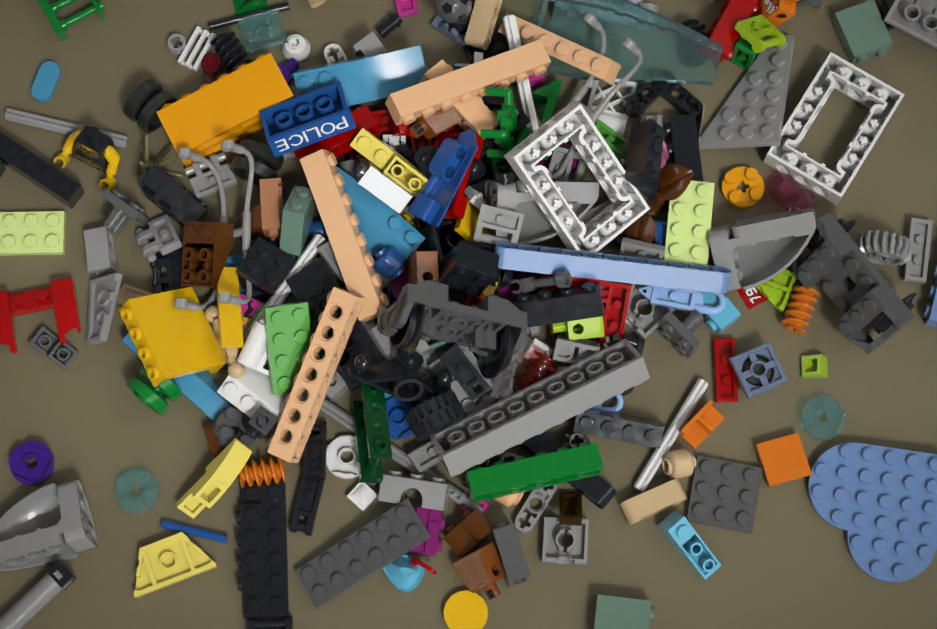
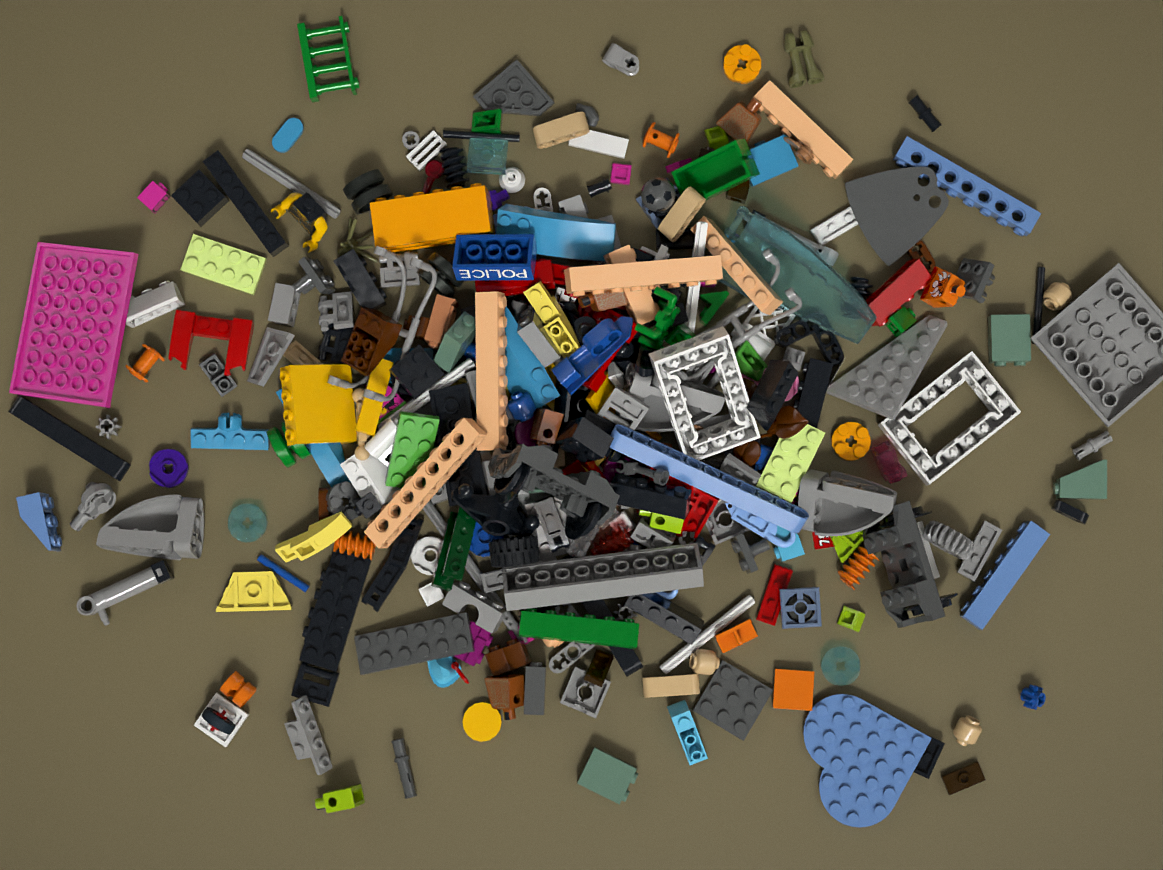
camera: 25 degrees right, 10 degrees up
(87, 406) = (230, 435): none -> dark azure plate
(757, 27) = (915, 307): lime plate -> none

